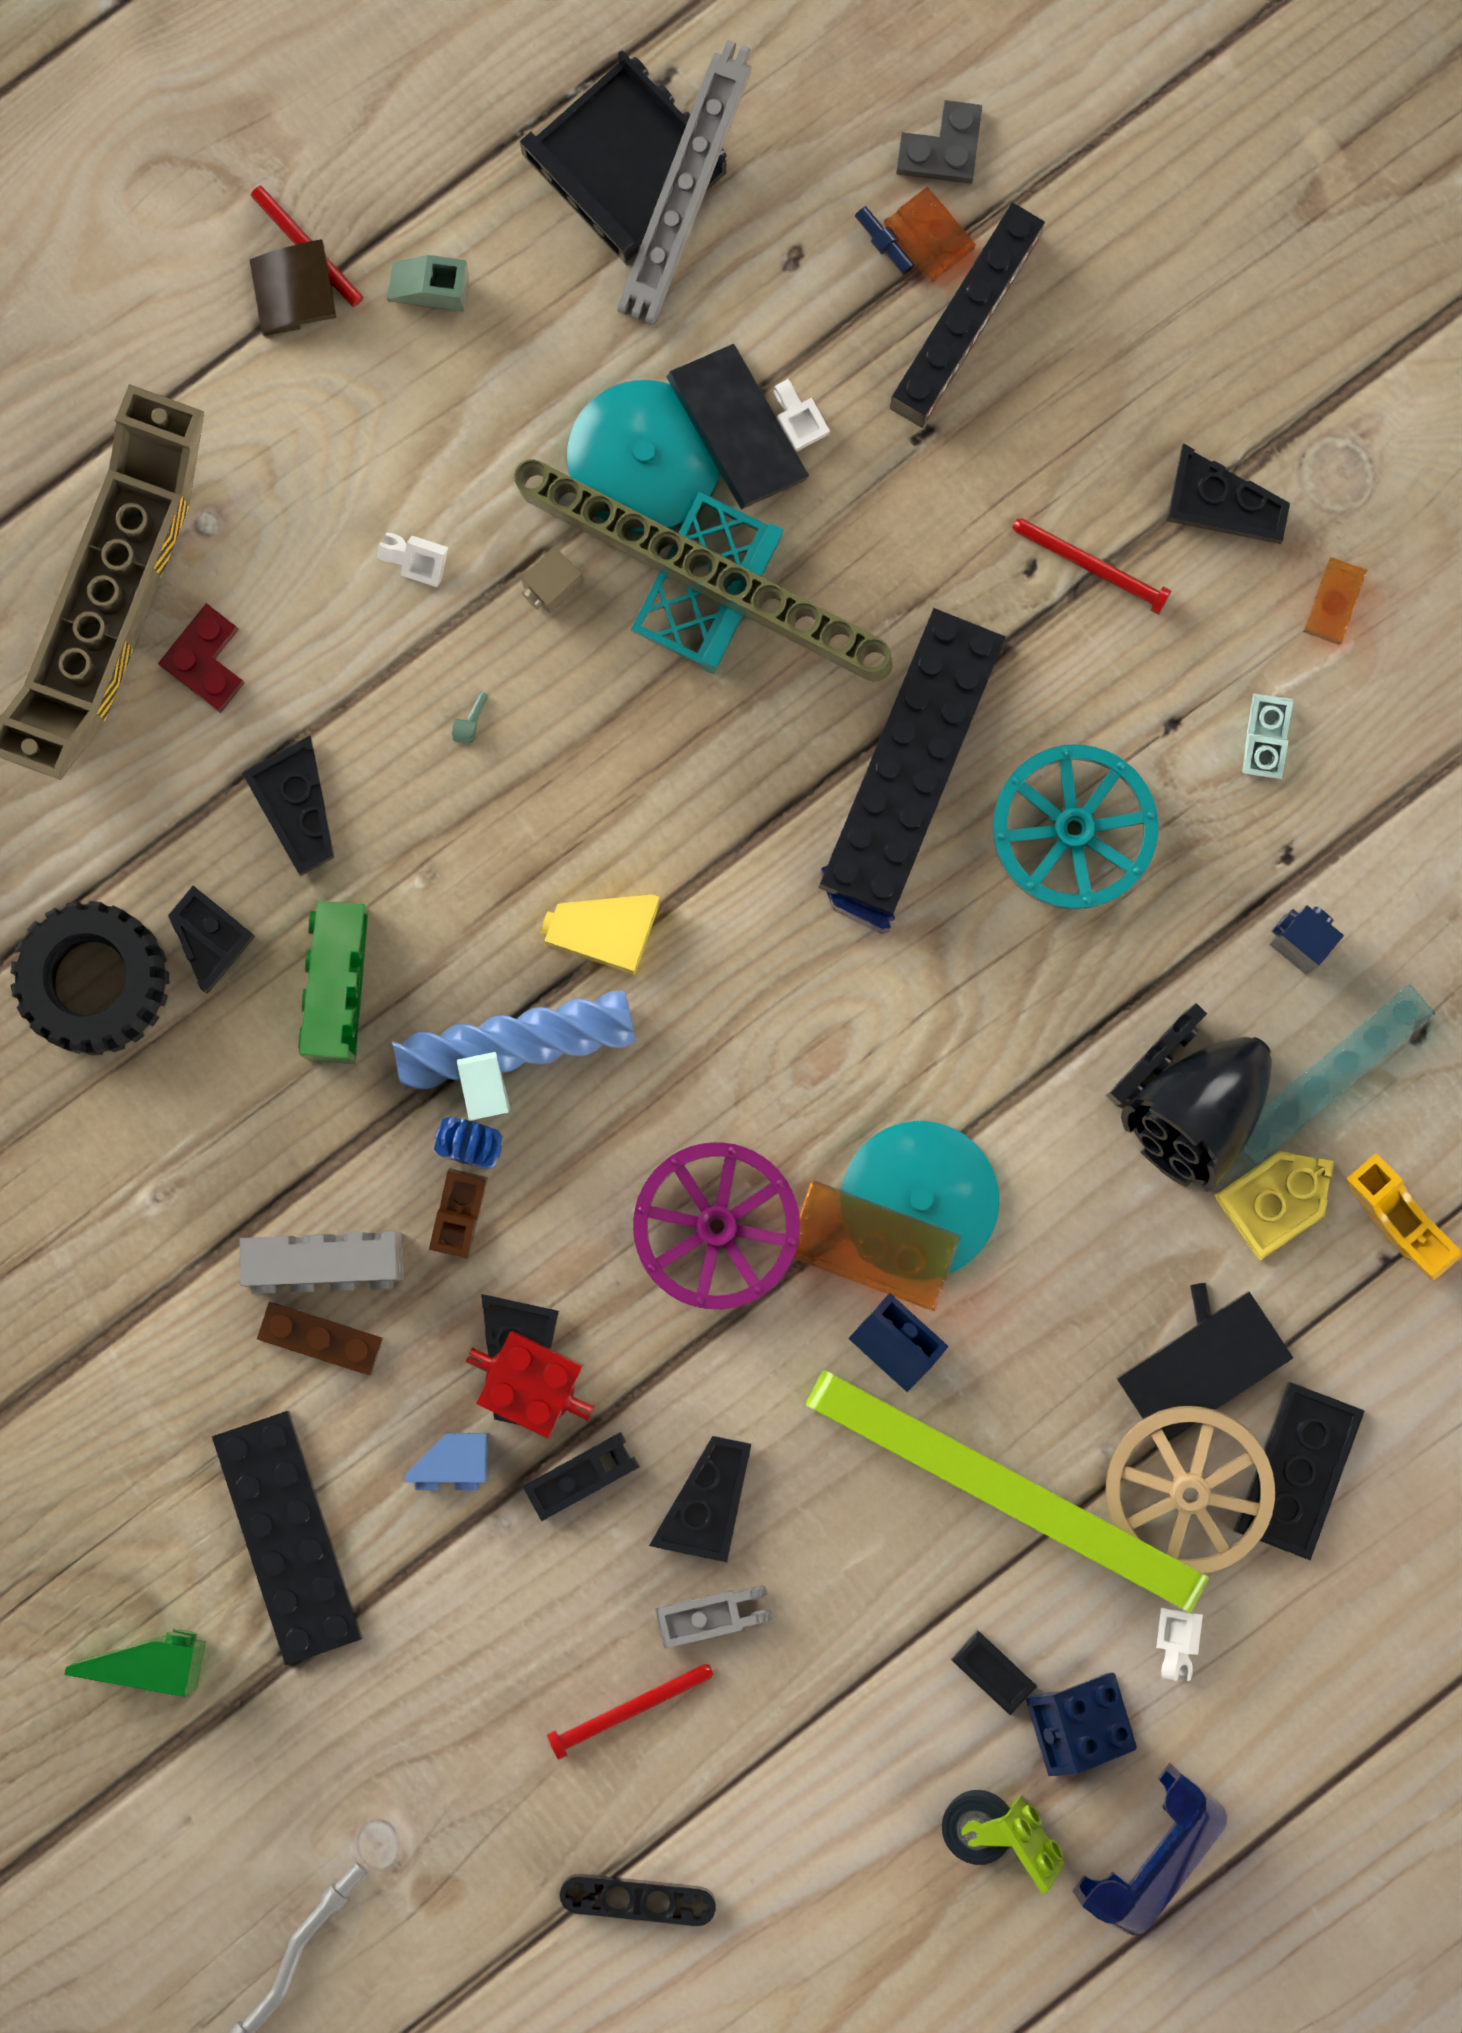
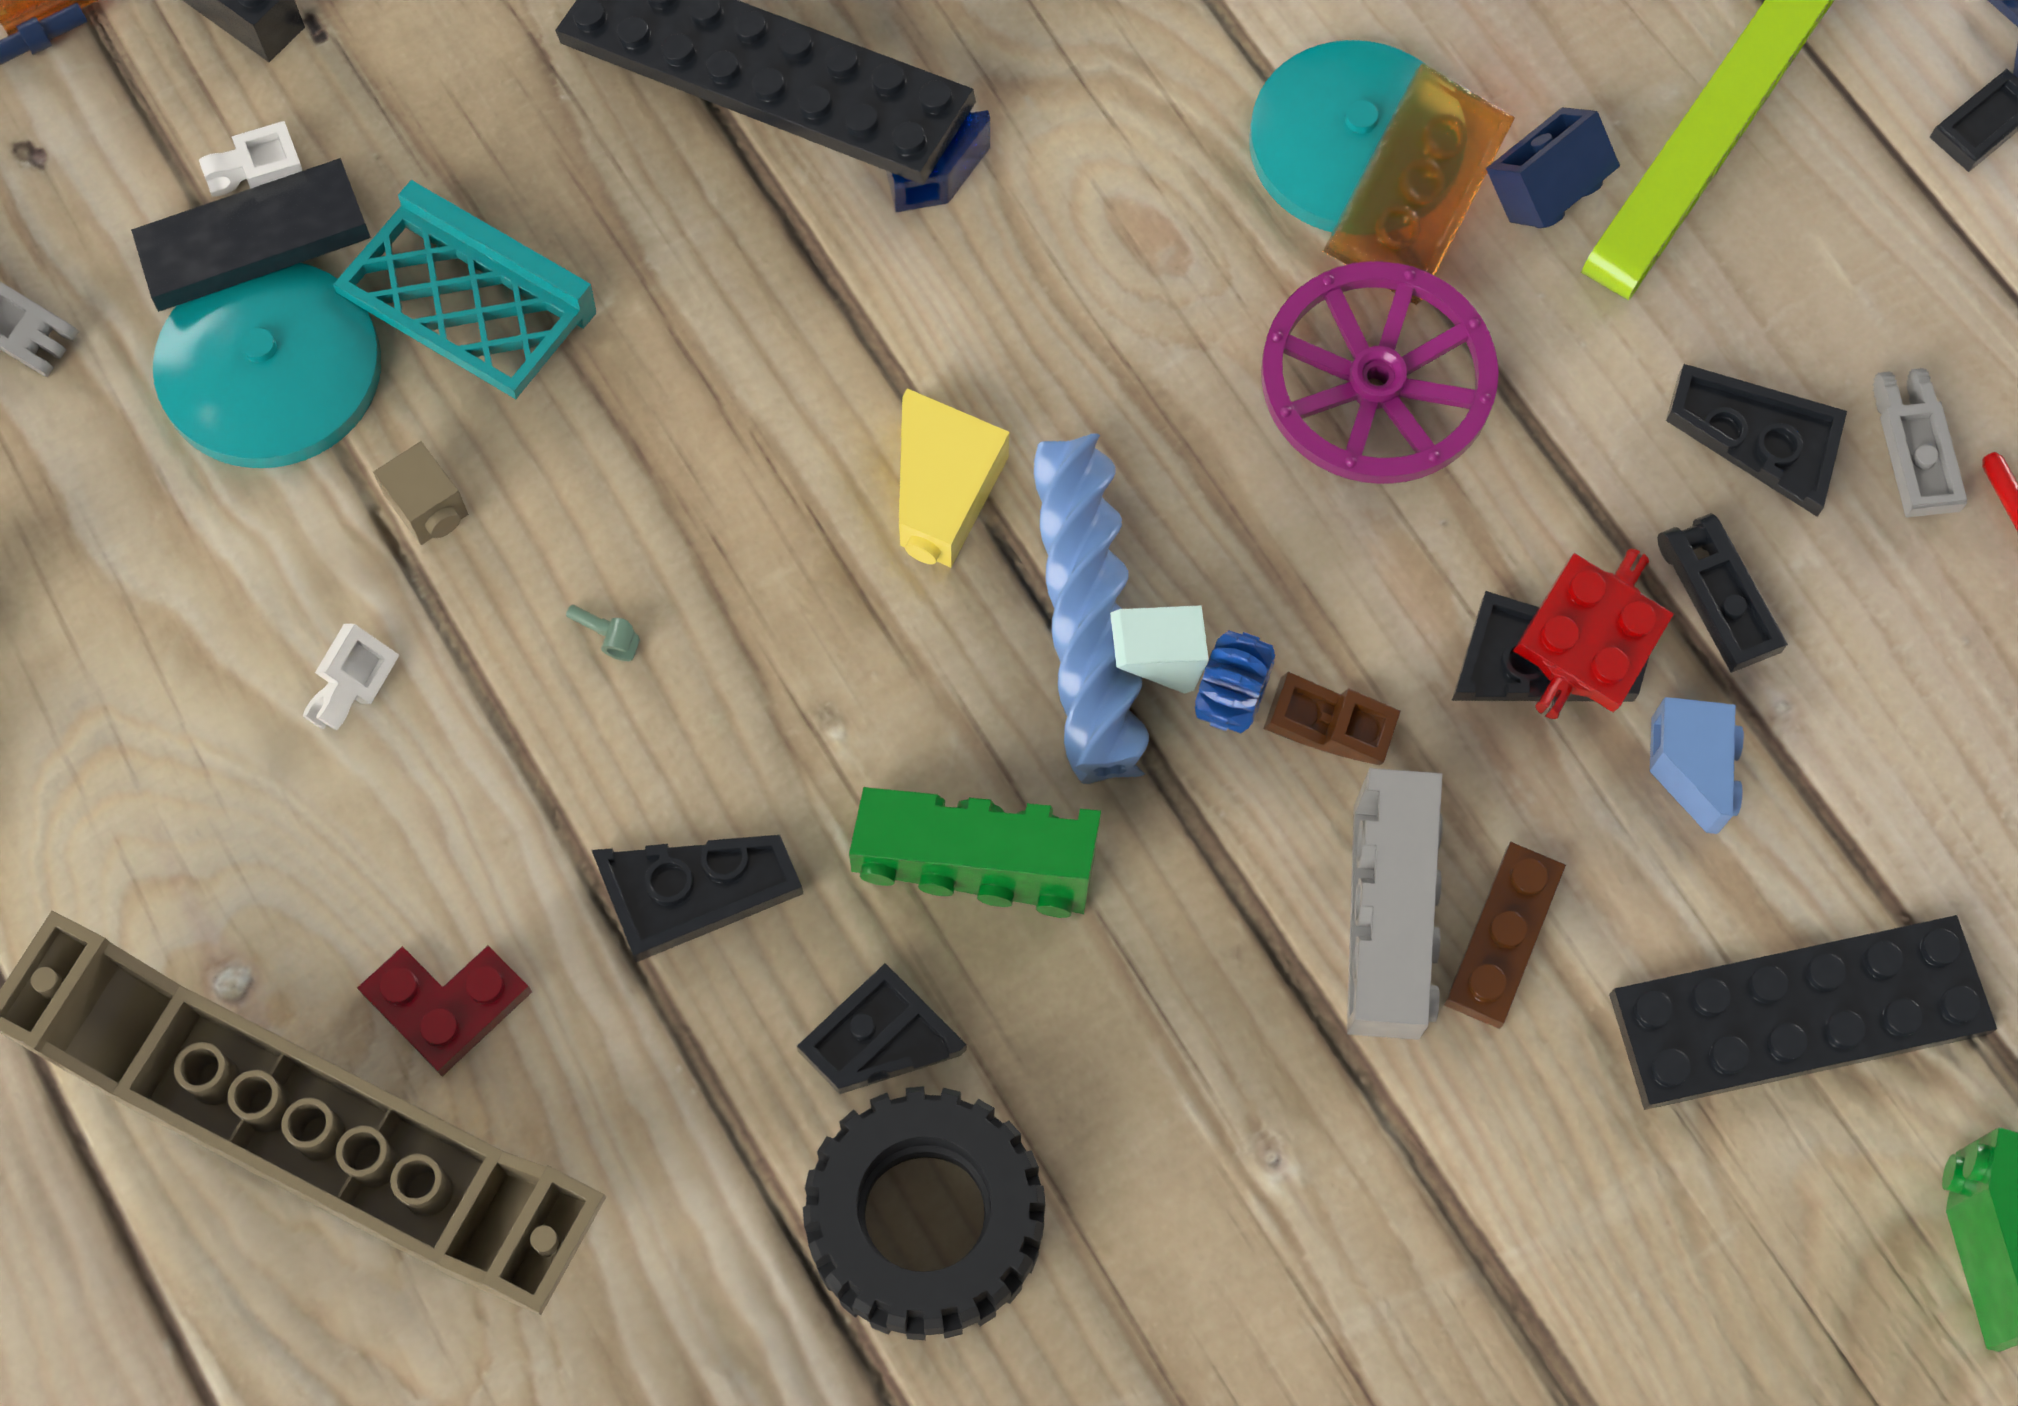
camera: 85 degrees left, 15 degrees down
(713, 585) = (444, 301): olive beam -> none

